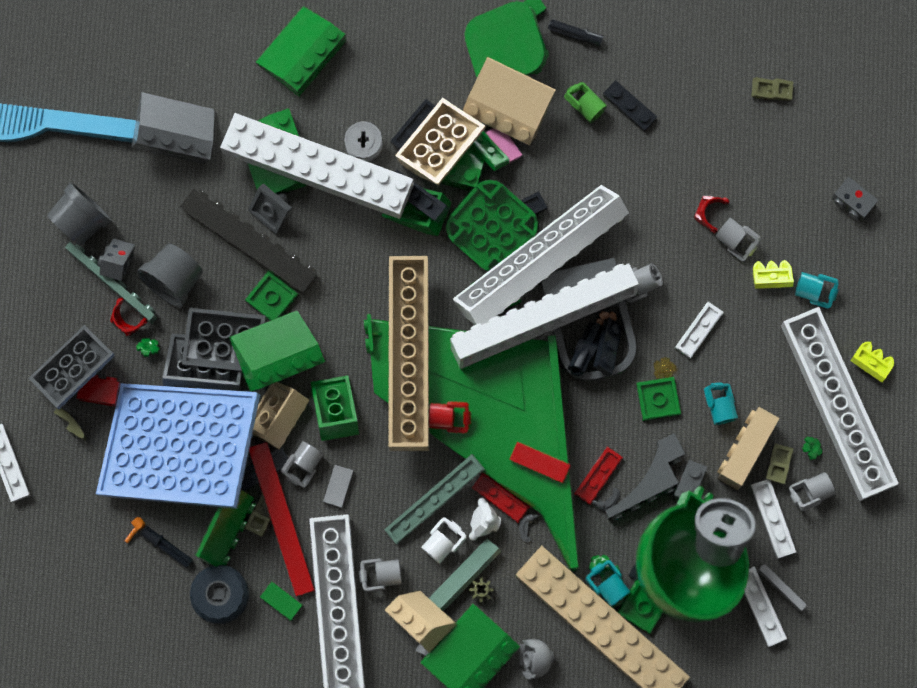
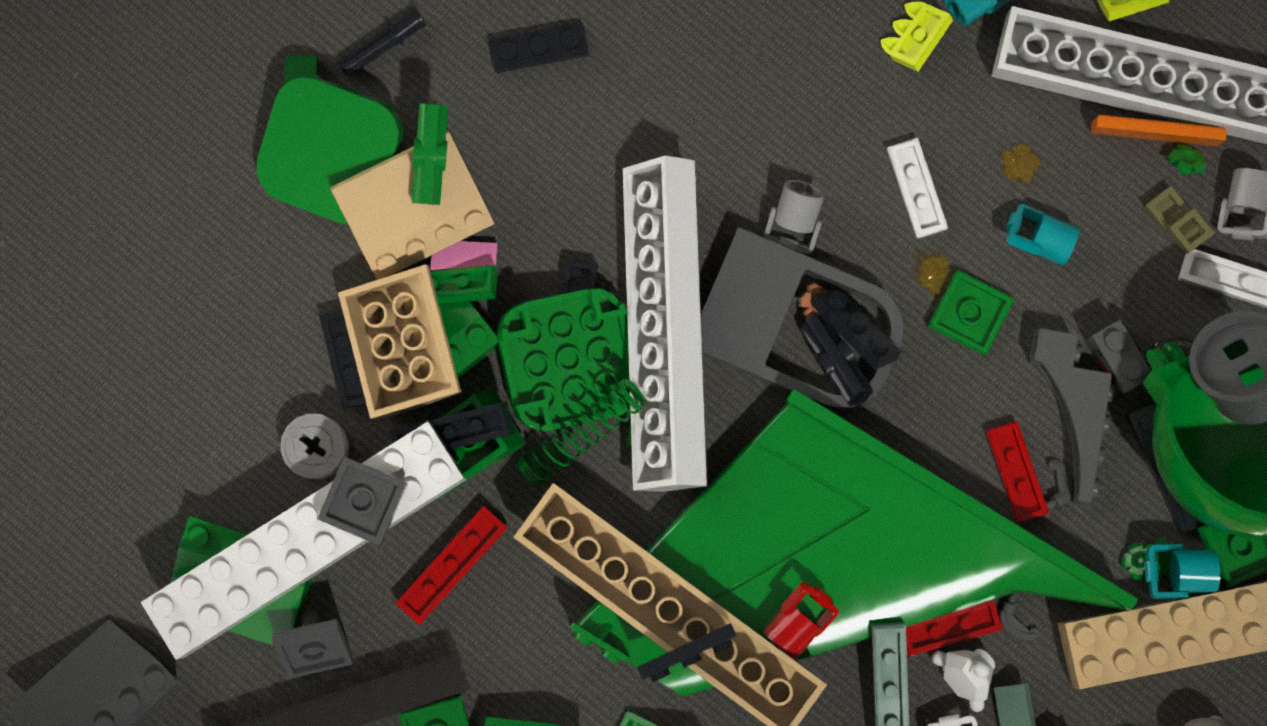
camera: 55 degrees left, 5 degrees up
(302, 50) = (118, 435): green slope -> none
(354, 175) = (362, 501): none -> dark grey plate
(355, 244) = (451, 565): none -> red plate
(395, 371) = (688, 653): none -> black plate
(491, 266) = (635, 404): none -> green piece
(537, 89) = (429, 154): none -> green piece
(540, 462) = (956, 542): red tile -> none
(544, 315) = (756, 384): white brick -> none
(589, 105) = (499, 100): bright green piece -> none
(700, 213) = (761, 67): red helmet -> none
(732, 234) = (824, 44): light grey piece -> none
(748, 448) = (1132, 245): tan brick -> none
(749, 370) = (1020, 164): none -> clear yellow plant
(815, 422) = (1158, 130): none -> orange tile

